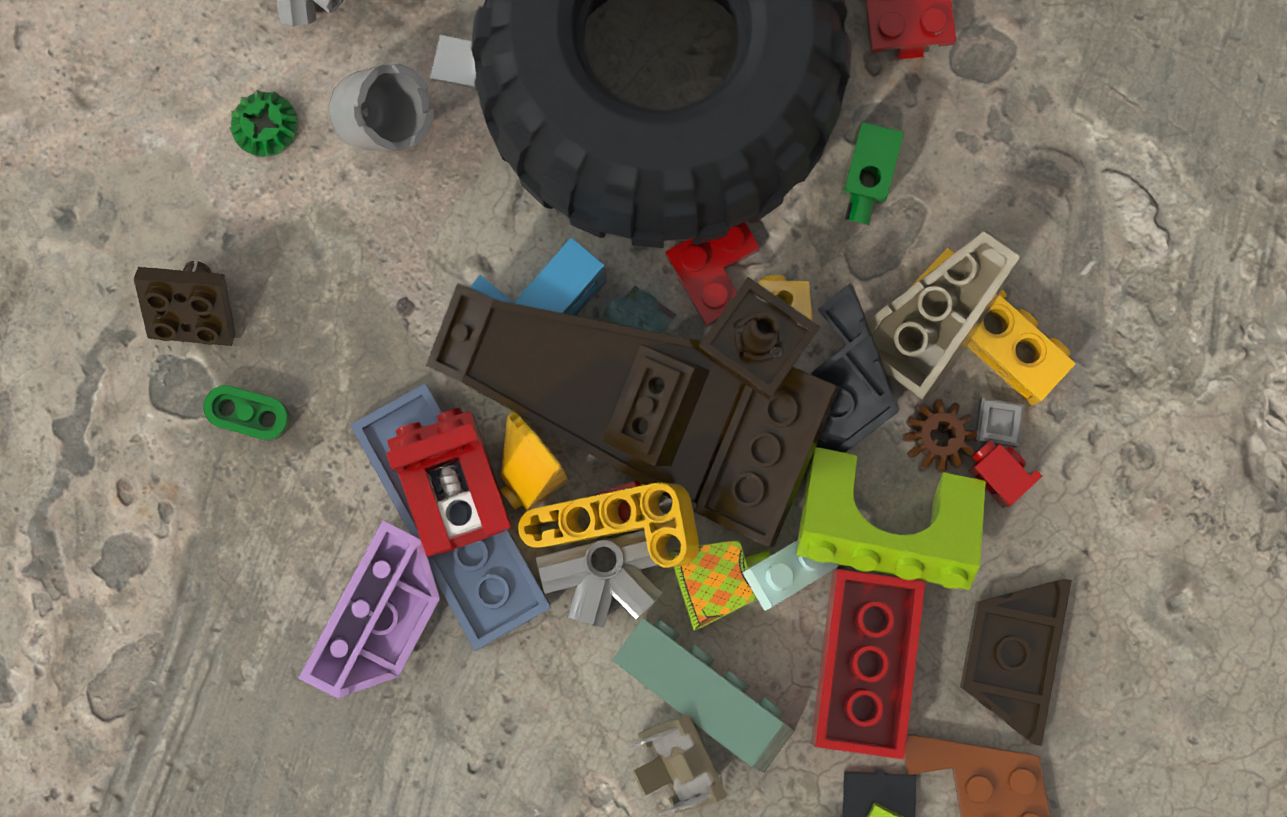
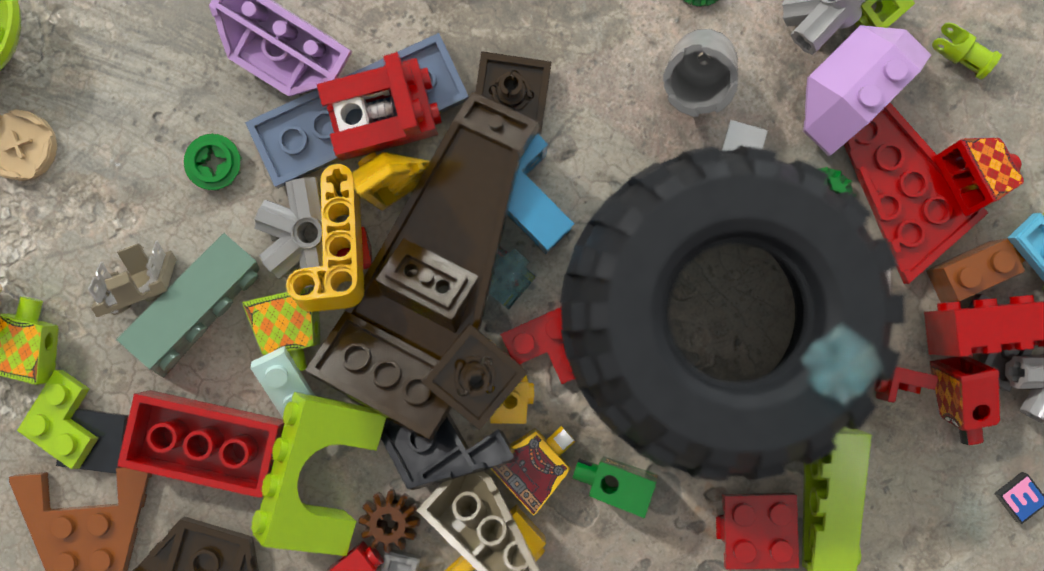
camera: 90 degrees right, 5 degrees up
(399, 313) = (527, 77): none -> dark brown plate
(514, 707) = (200, 152): none -> green gear
(862, 261) = (538, 467): none -> torso

